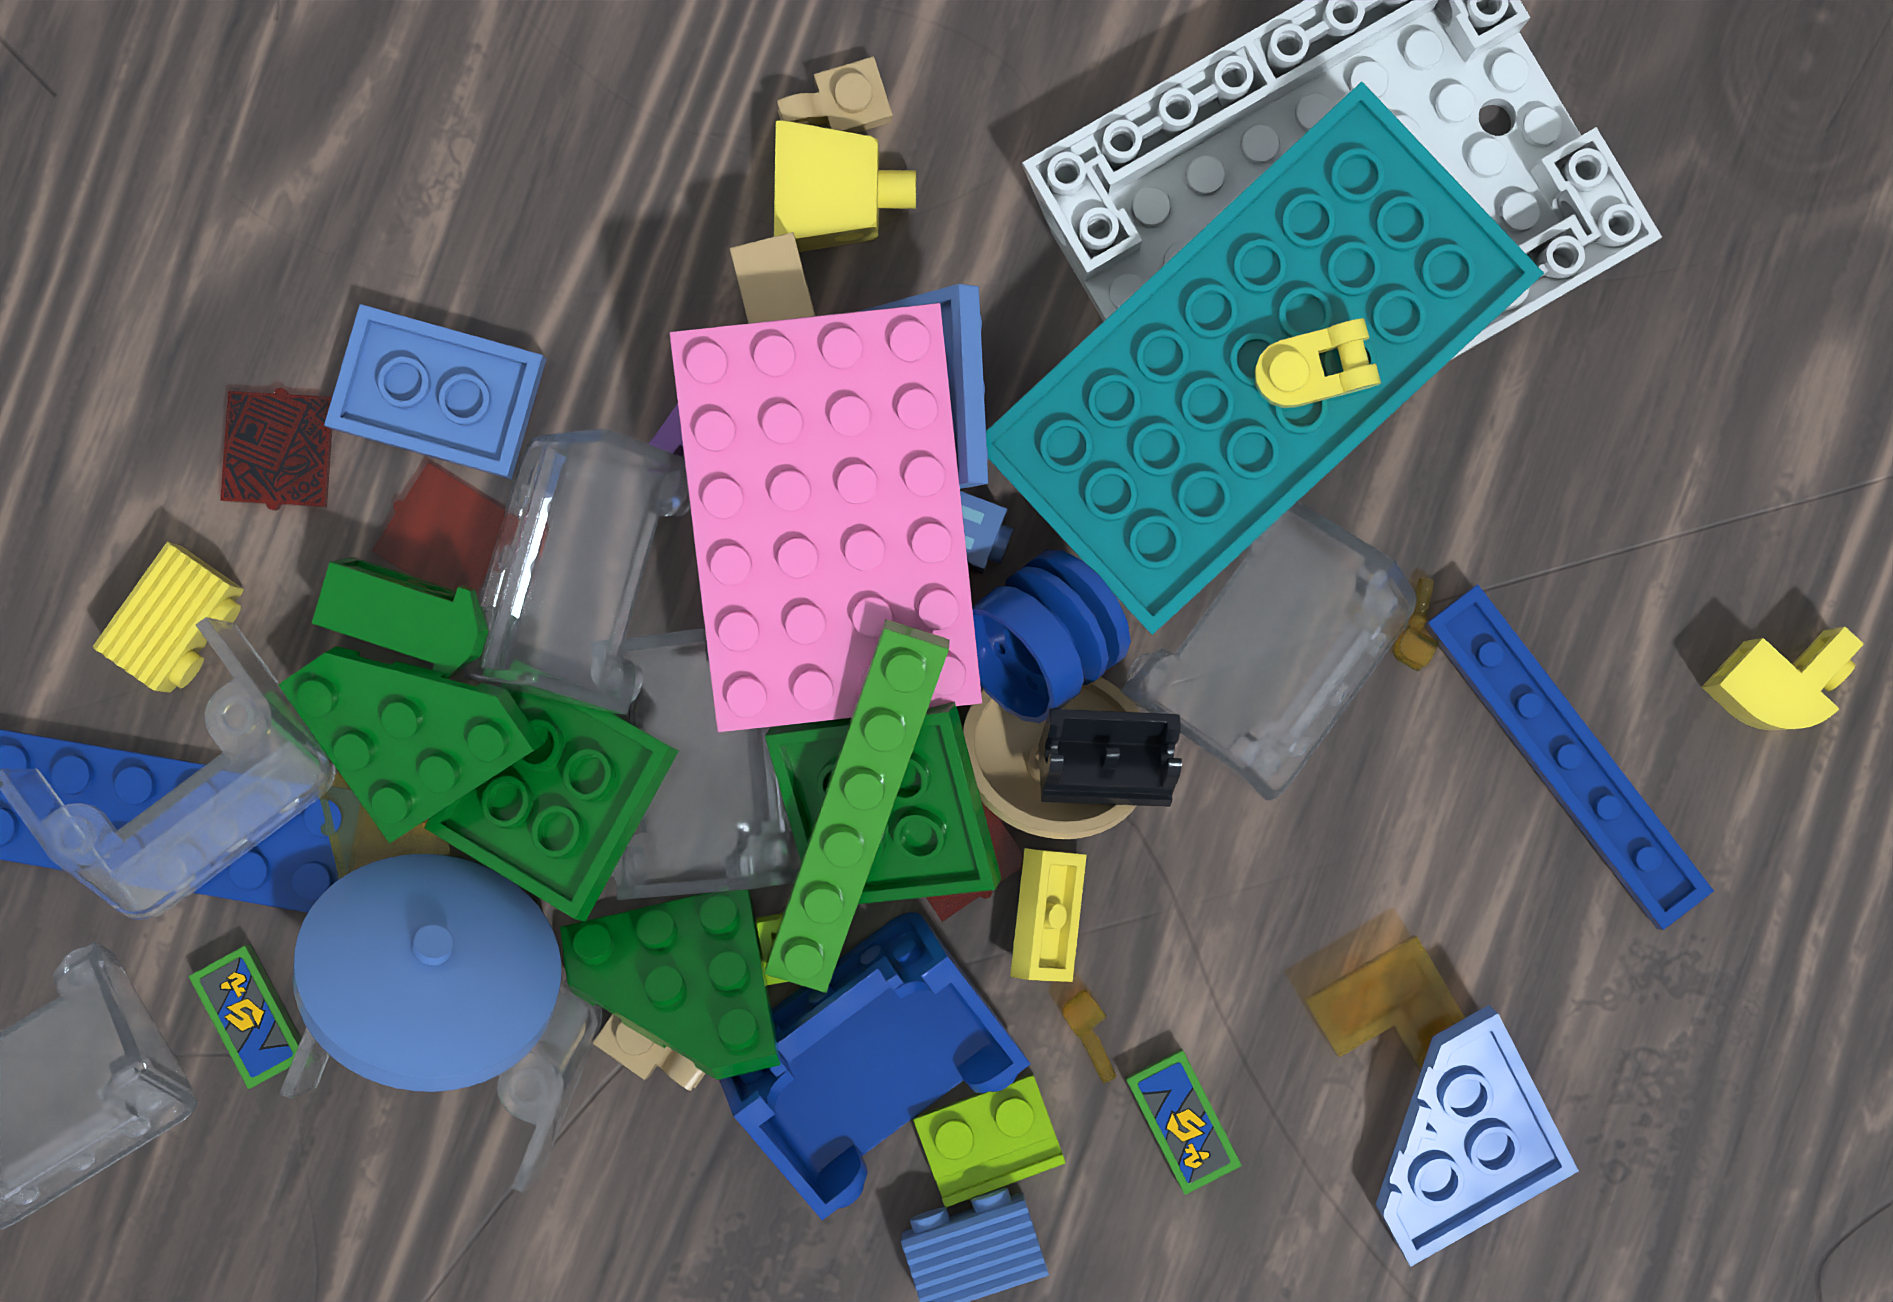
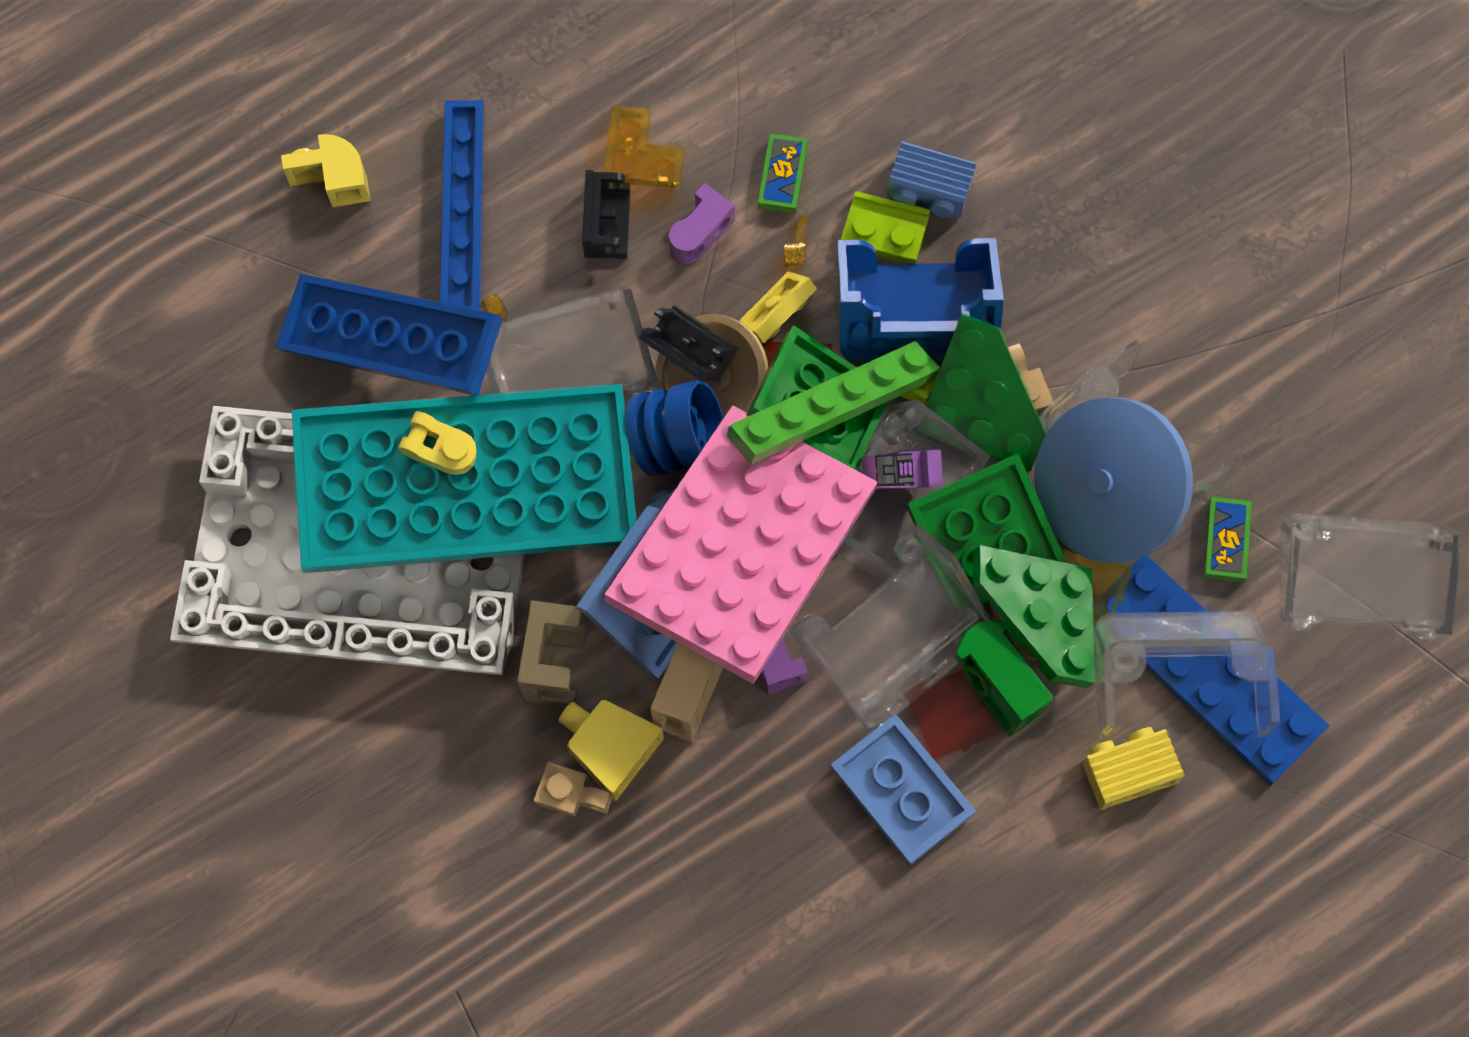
camera: 145 degrees left, 15 degrees down
(276, 449) = (1011, 825): clear red piece -> none
(714, 794) = (905, 469): none -> leg
(975, 190) = (549, 626): none -> dark tan panel
(1228, 964) = (703, 227): none -> medium lavender leg
(1370, 885) = (606, 215): none -> black hinge
(1469, 1140) = (652, 68): plate -> none
(1510, 490) = (390, 334): none -> blue plate

